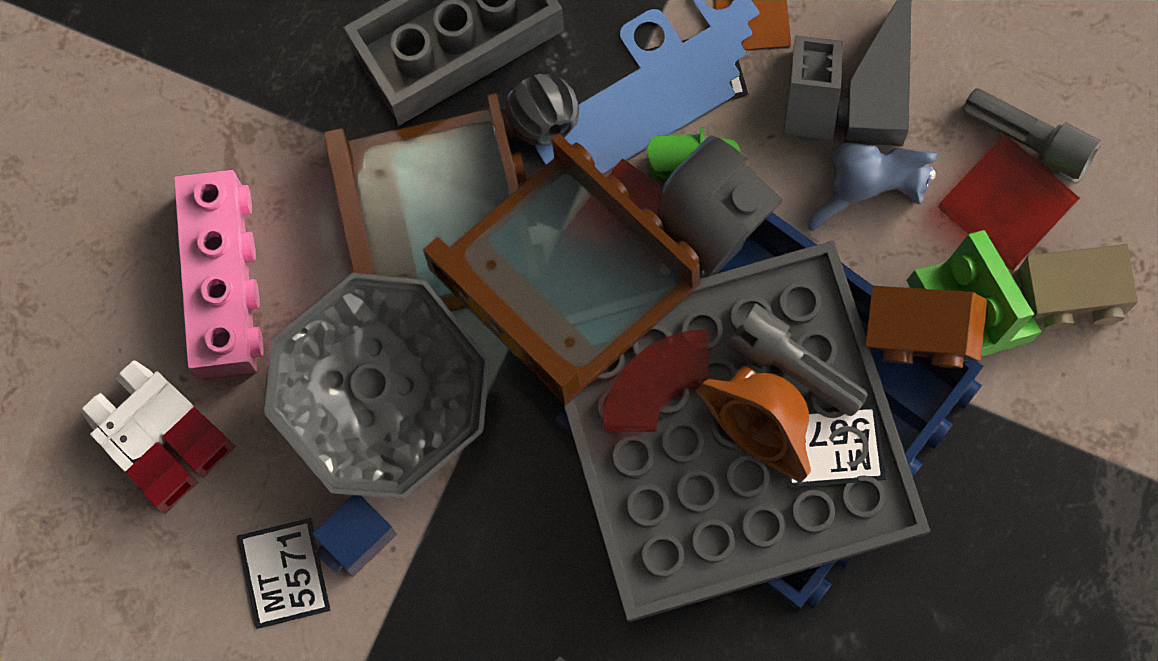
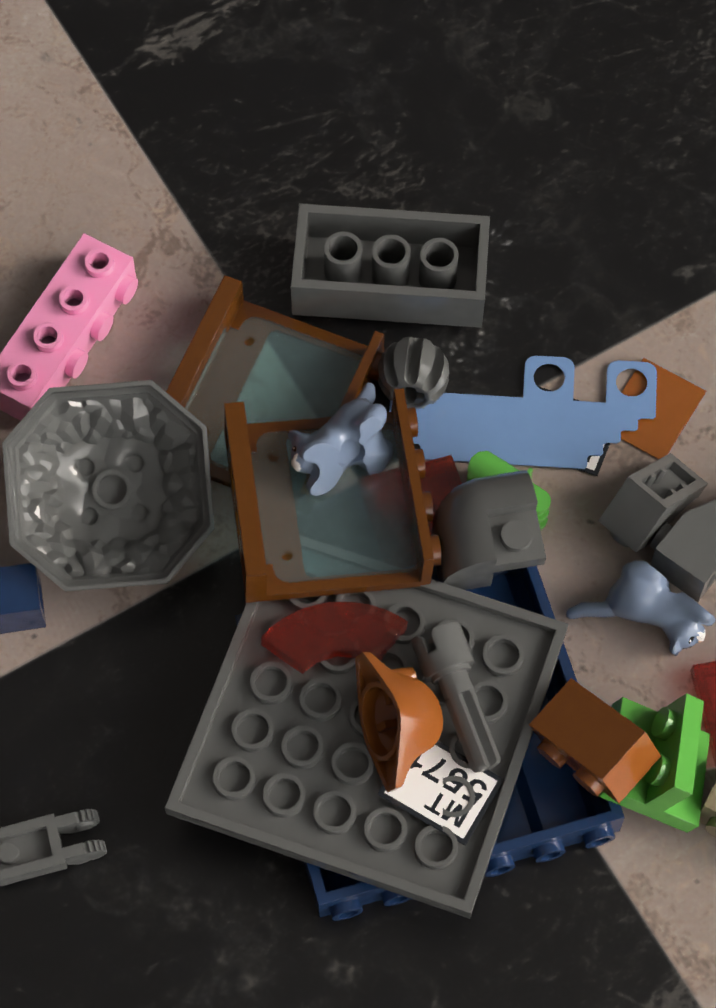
camera: 30 degrees right, 10 degrees down
(546, 206) = (344, 441): none -> sand blue animal

